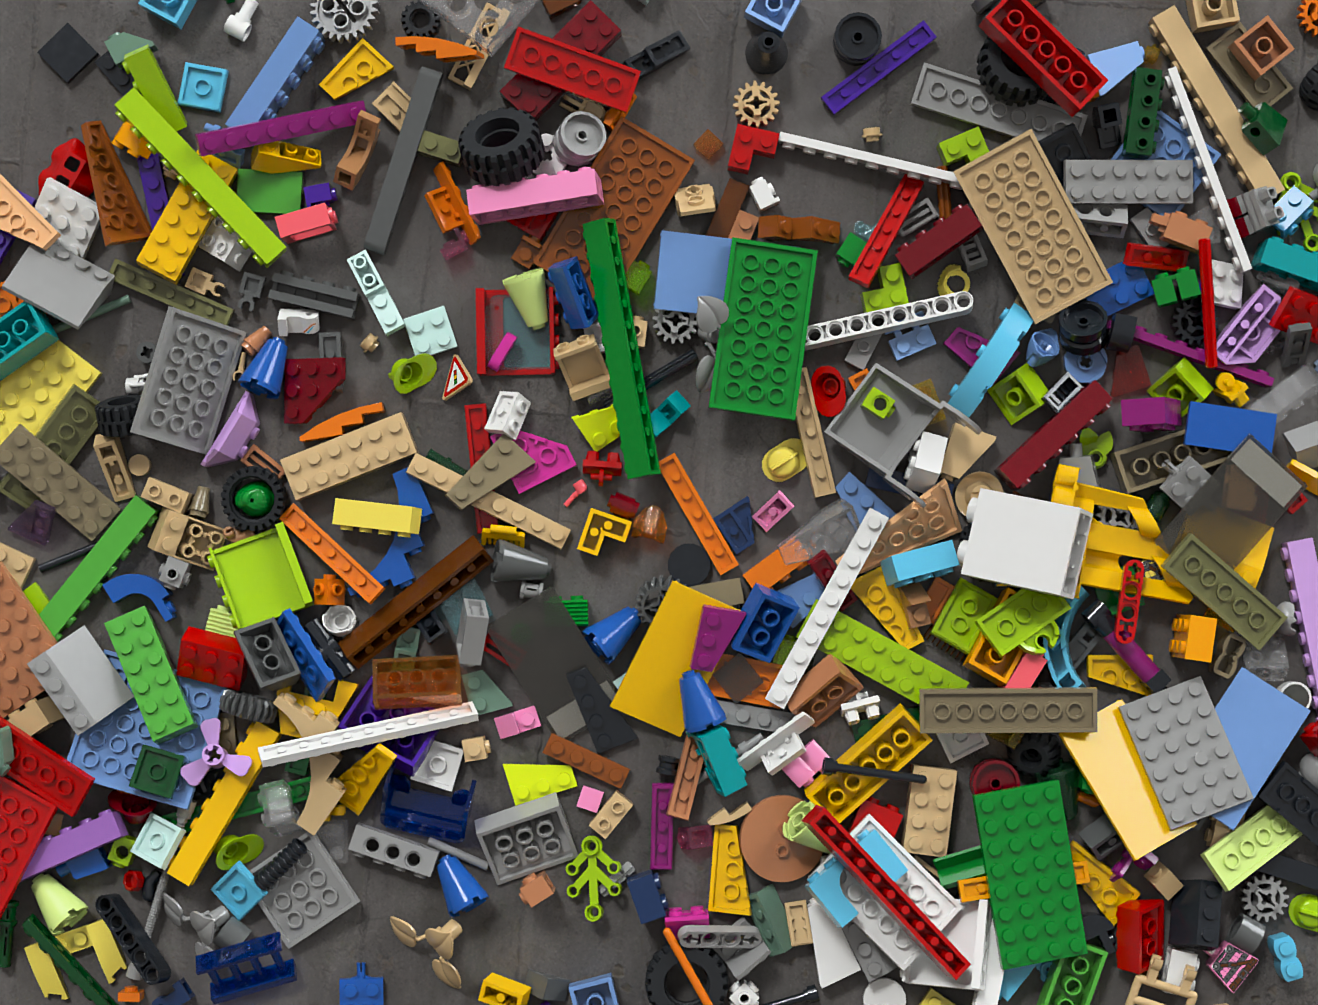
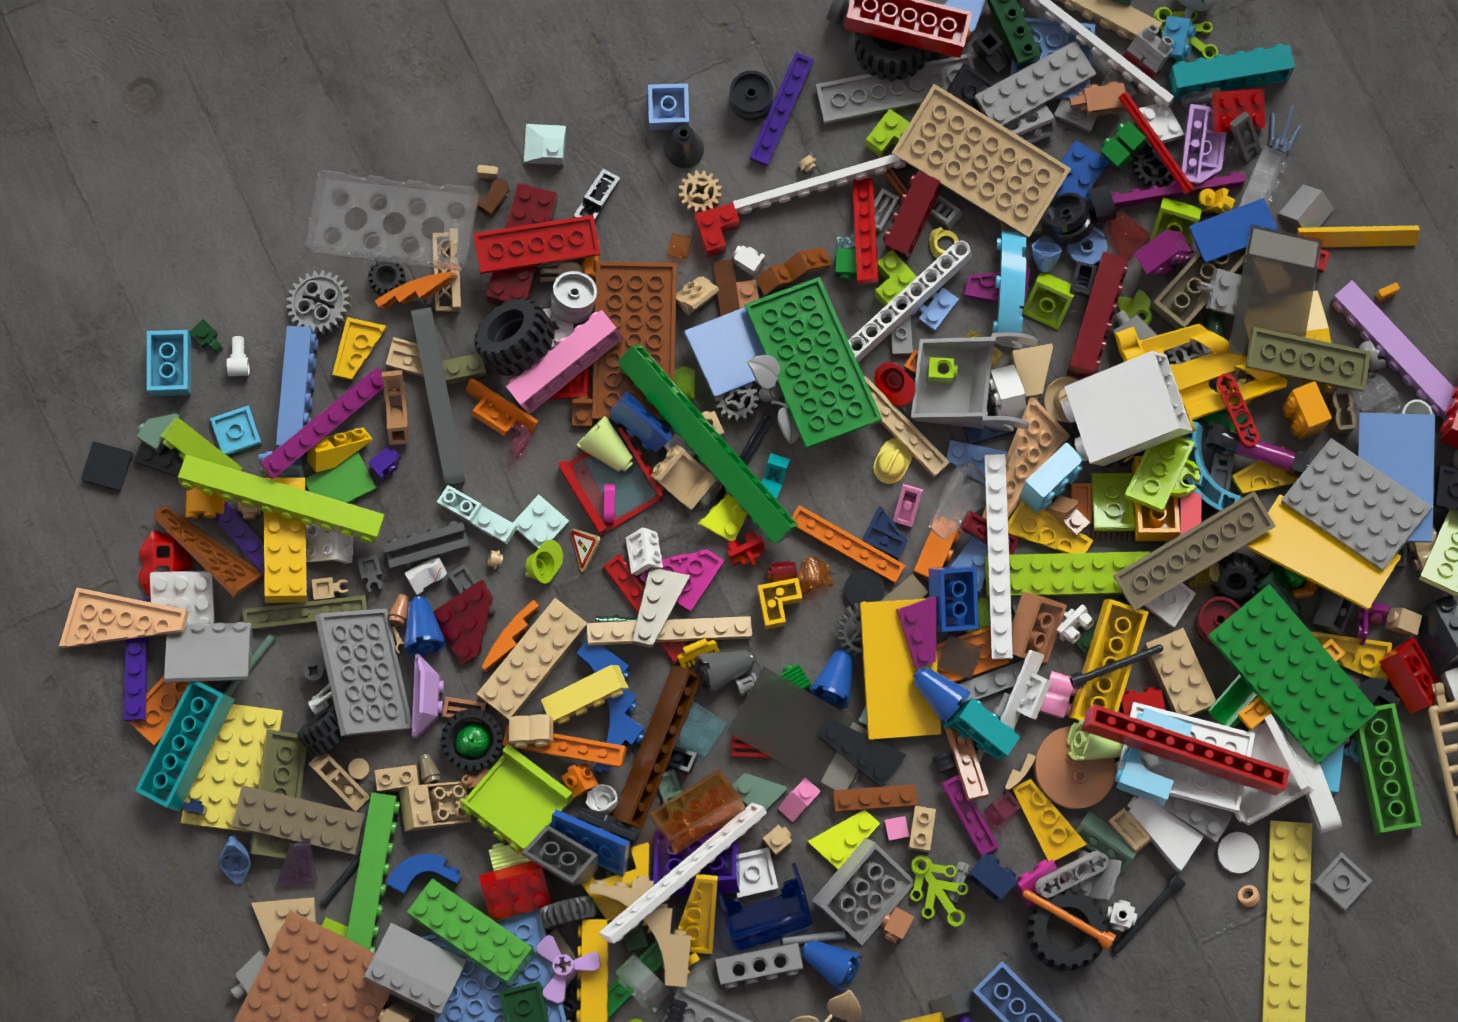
camera: 35 degrees left, 10 degrees down
(182, 573) = (441, 831): light grey brick -> none
(306, 223) = (387, 488): coral window -> none
(309, 522) = (531, 730): none -> tan brick
(472, 632) = (719, 742): light grey window -> none
(580, 487) = (736, 577): coral hand -> none
(1155, 257) = (1091, 132): red plate -> none

